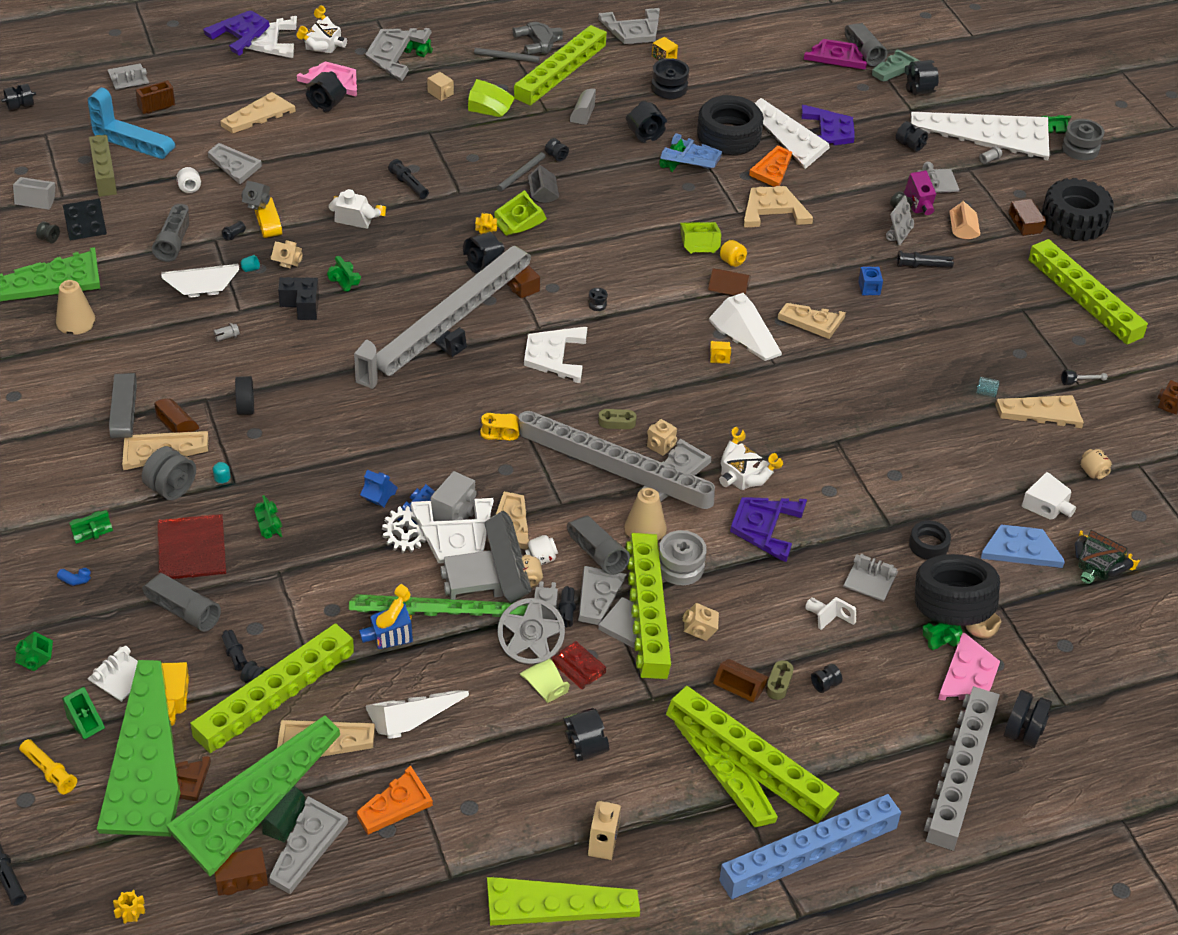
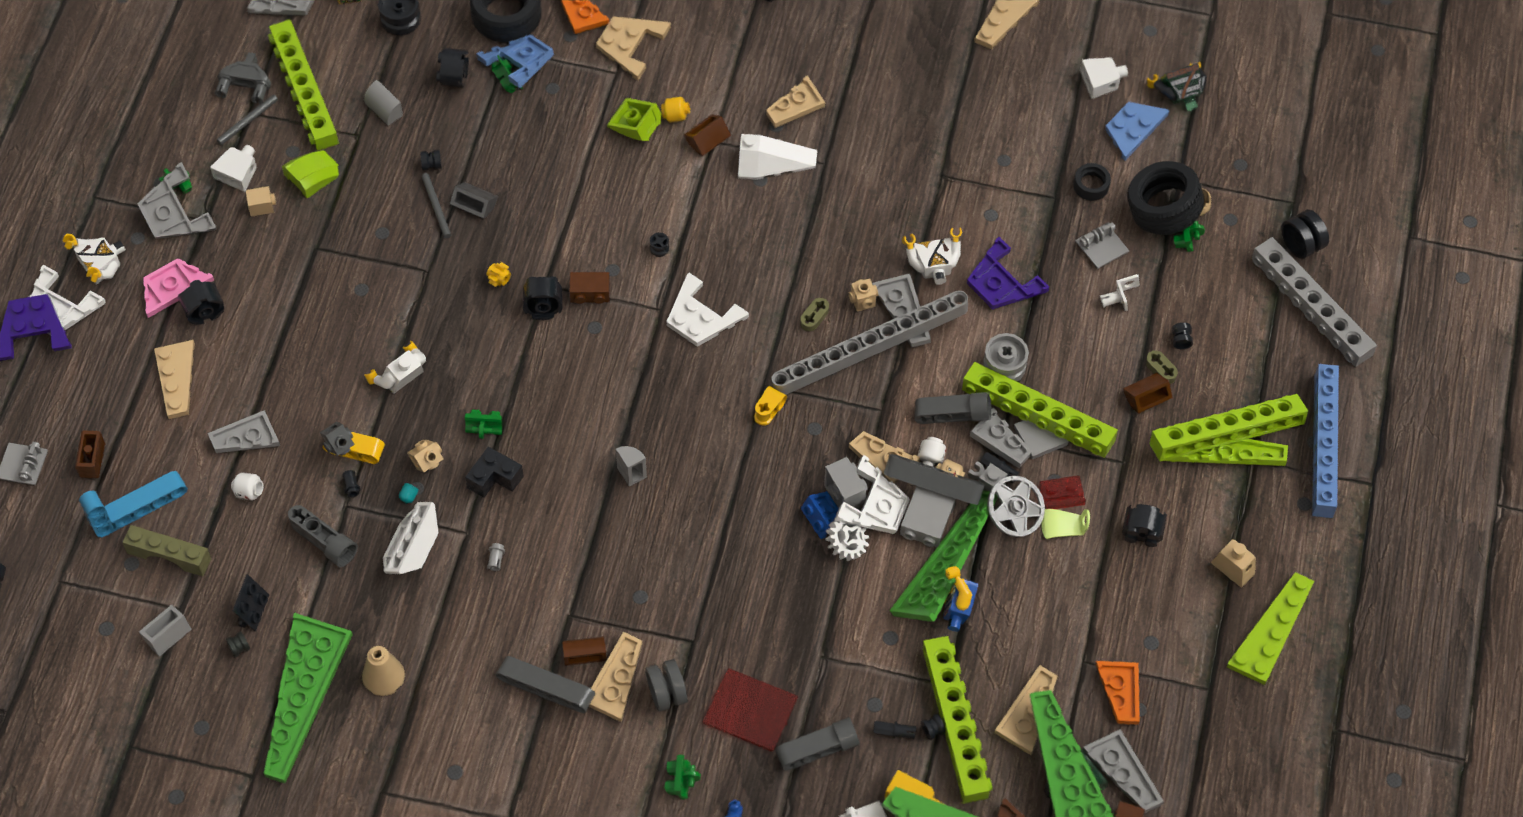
camera: 55 degrees left, 15 degrees up
(221, 472) = (679, 645): teal piece -> none
(244, 395) = (602, 580): black tyre -> none
(266, 516) = (752, 632): green hinge -> none
(378, 488) = (787, 534): blue brick -> none
(401, 716) = (1041, 635): white wedge -> none
(404, 174) = (372, 302): black pin -> none
(451, 310) = (603, 357): light grey beam -> none
(452, 342) = (632, 387): black bracket -> none
(459, 64) = (235, 167): none -> white torso
(519, 215) = (506, 242): lime slope -> none
(646, 515) = (949, 360): tan cone -> none
(701, 621) = (1079, 385): tan brick -> none
(720, 352) = (787, 193): yellow bracket -> none
(870, 280) = (780, 32): blue brick -> none
(969, 668) = (1230, 241): bright pink wing -> none
(988, 386) = (958, 34): clear light blue beam -> none
(1096, 463) = (1090, 21): tan head -> none

